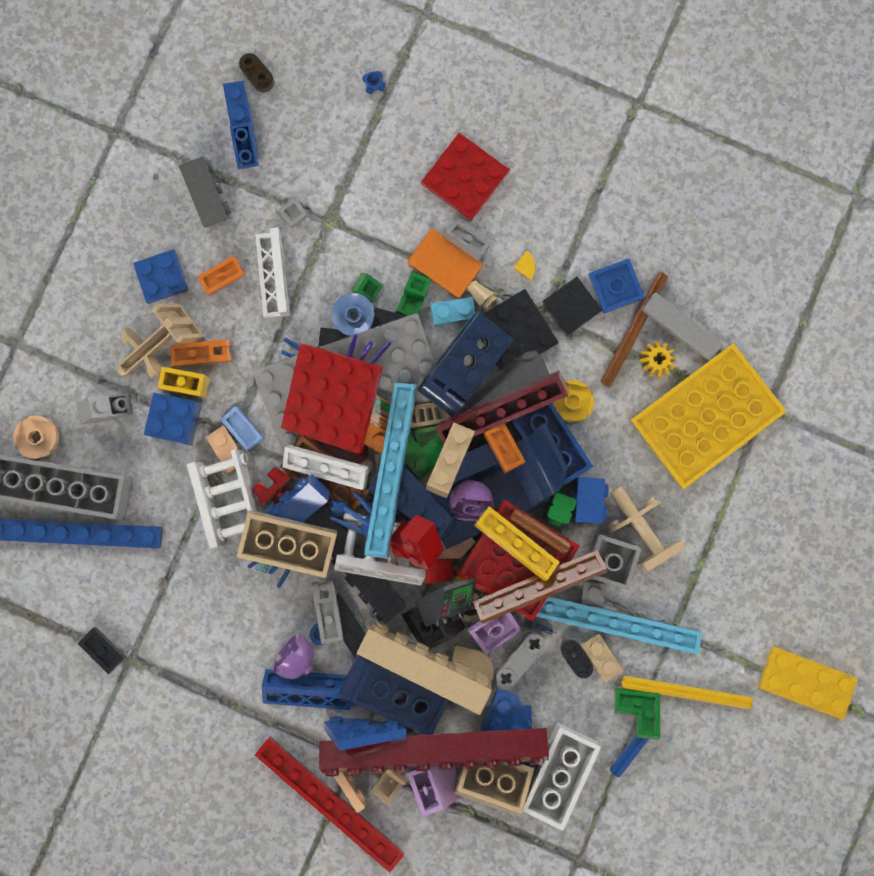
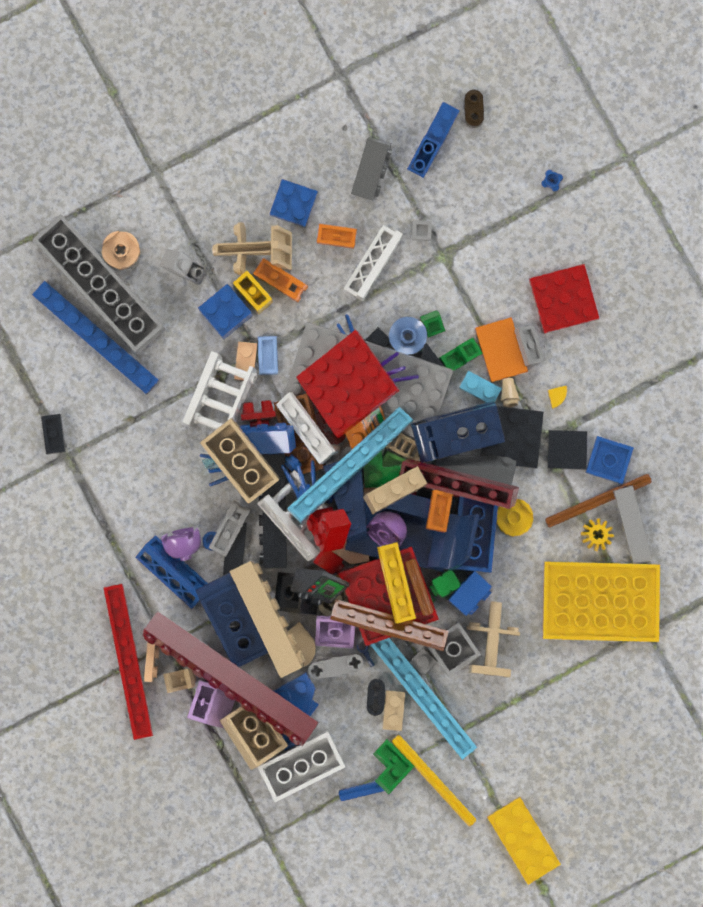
camera: 30 degrees right, 0 degrees up
(353, 732) = (191, 627): blue plate -> none

